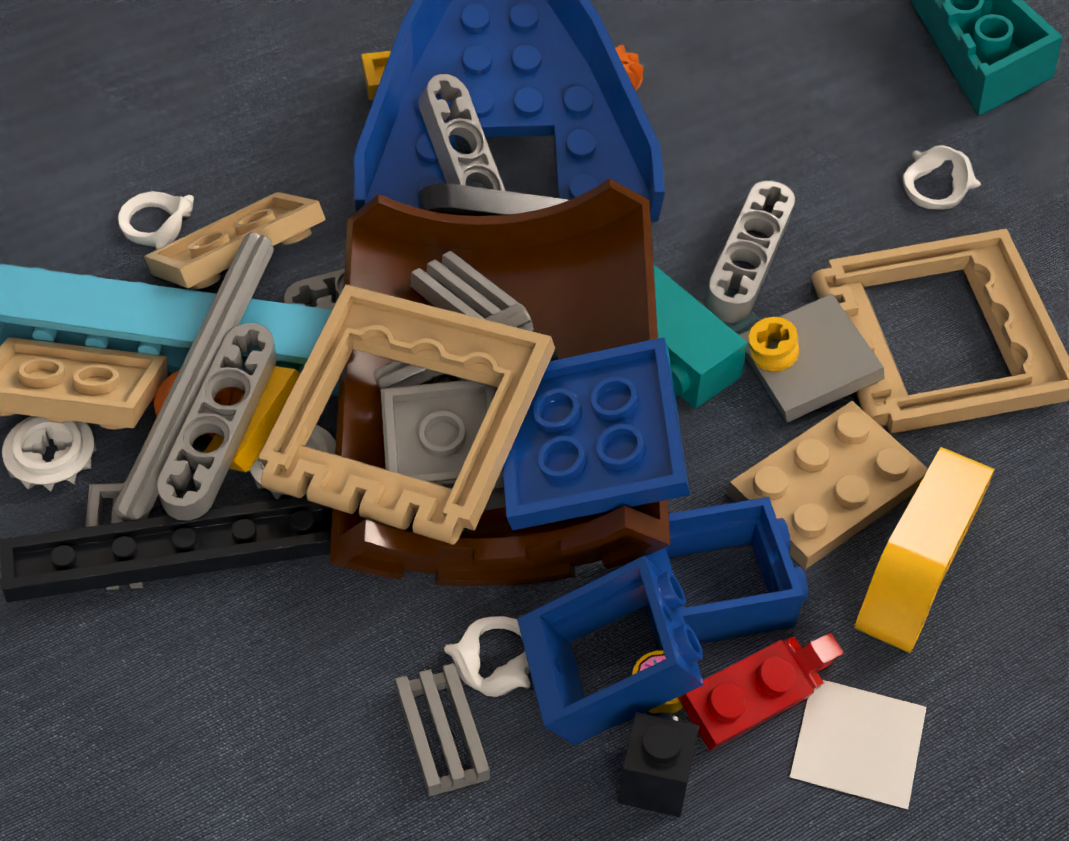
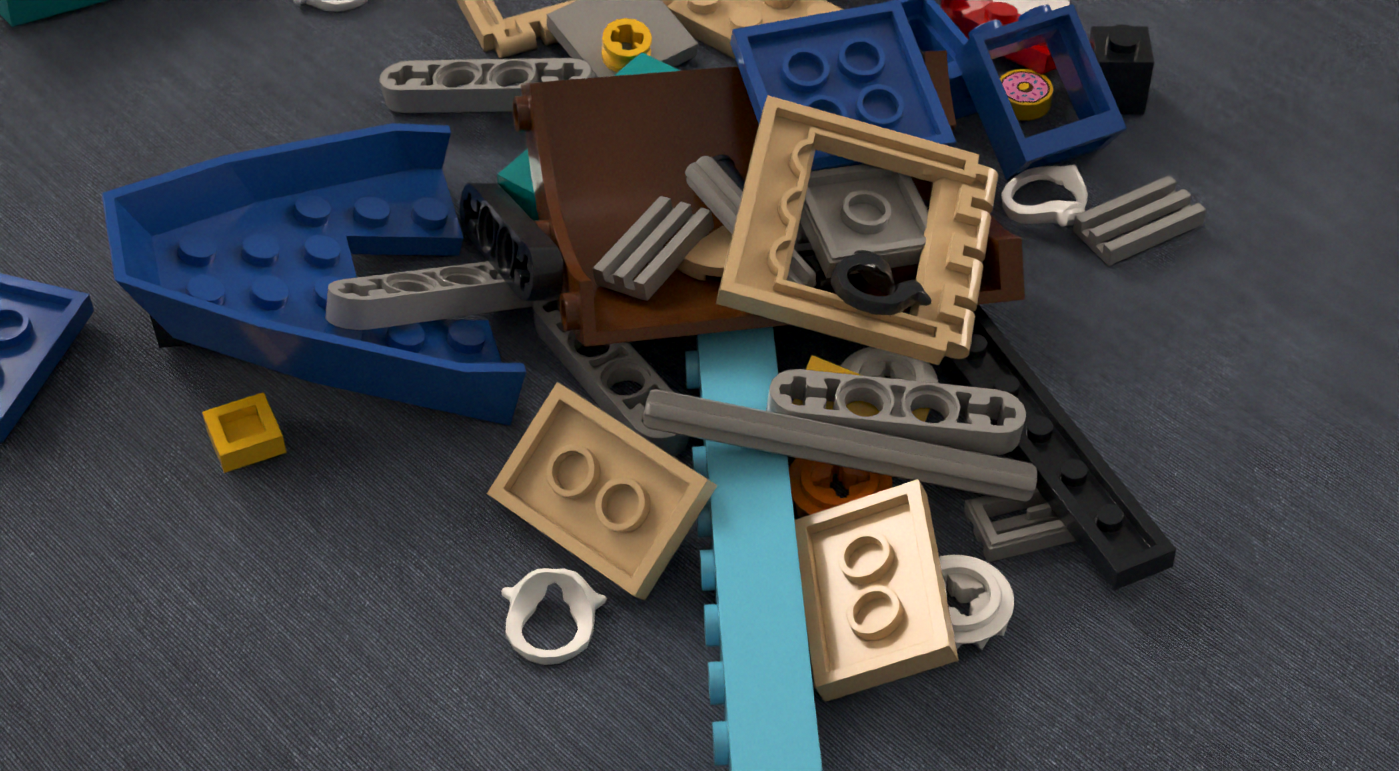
camera: 100 degrees left, 5 degrees down
(319, 432) = (879, 275): none -> black piece

